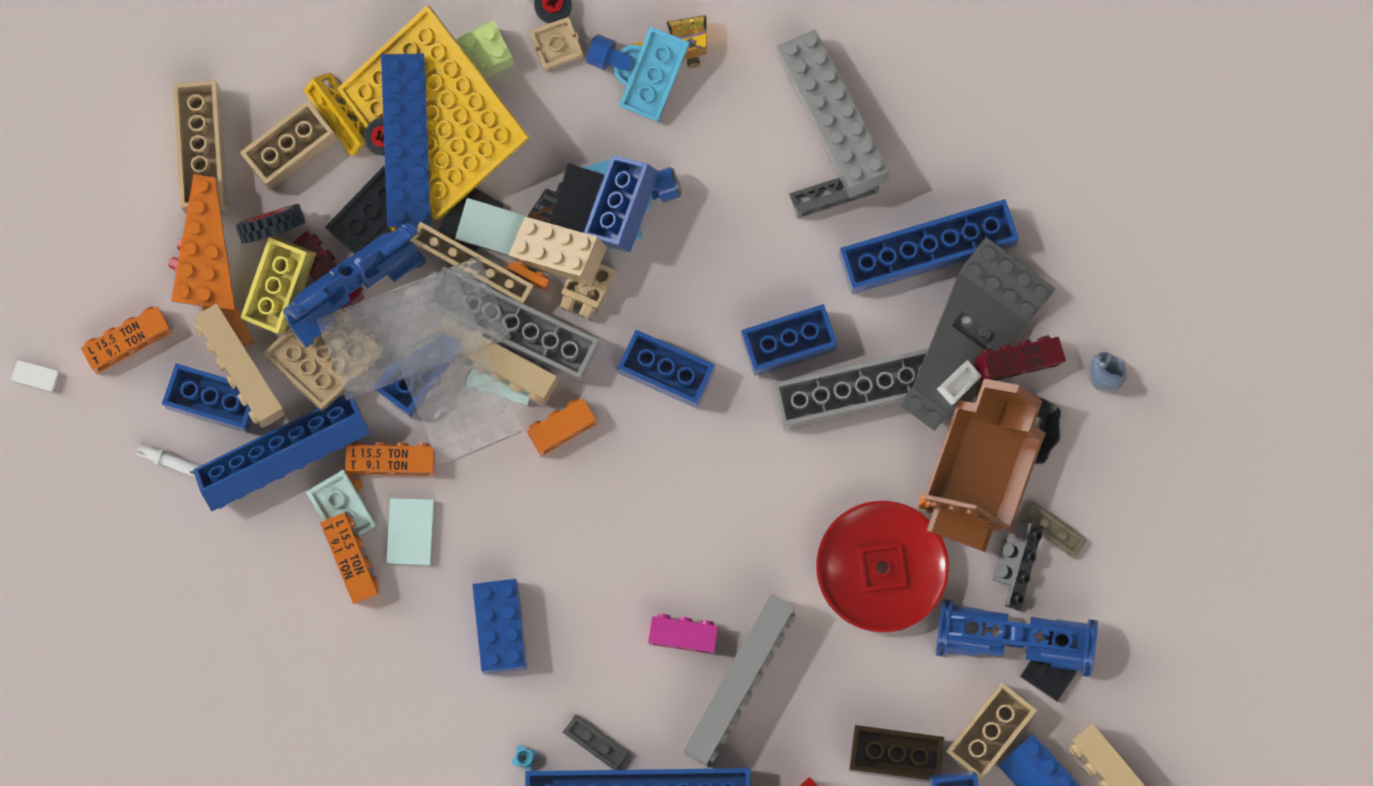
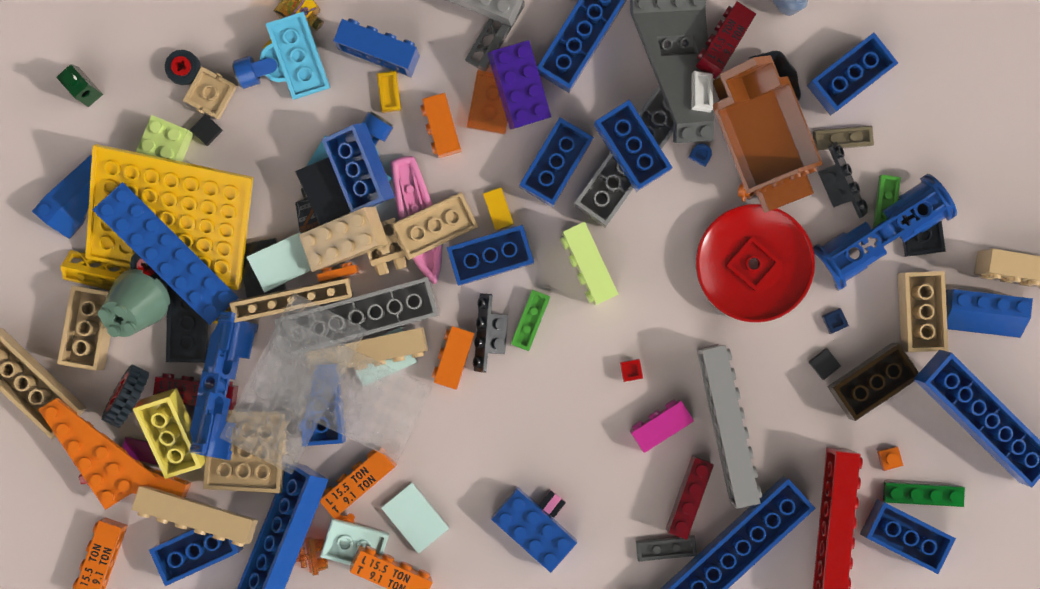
camera: 45 degrees left, 10 degrees up
(240, 281) = (139, 450): none -> magenta tile
(305, 480) = (315, 564): none -> clear orange hips
(344, 157) = (133, 303): none -> sand green cone
(365, 32) = (68, 201): none -> blue wedge
(526, 70) = (206, 130): none -> black piece
(533, 620) = (552, 503): none -> tile
(609, 434) = (490, 333): none -> black bracket
(634, 286) = (410, 198): none -> bright pink piece
(642, 305) = (434, 226): none -> tan tile
(652, 452) = (530, 320): none -> bright green plate
(653, 714) = (689, 497): none -> dark red brick
(699, 567) = (631, 370): none -> red plate
(703, 166) = (389, 91): none -> yellow tile
(708, 338) = (498, 209): none -> yellow tile
(720, 229) = (440, 125): none -> orange brick
(724, 122) = (377, 47): none -> blue brick
(742, 445) = (589, 264): none -> yellowish green brick
(780, 246) = (486, 106): none -> clear orange tile
(814, 250) = (519, 84): none -> dark purple brick
(861, 376) = (632, 145): none -> blue brick
(869, 706) = (824, 364): none -> black piece
(910, 678) = (835, 321): none -> dark blue tile
(919, 439) = (701, 154): none -> blue tile
(1049, 607) = (886, 196): none -> bright green plate
(1105, 480) = (852, 74): none -> blue brick

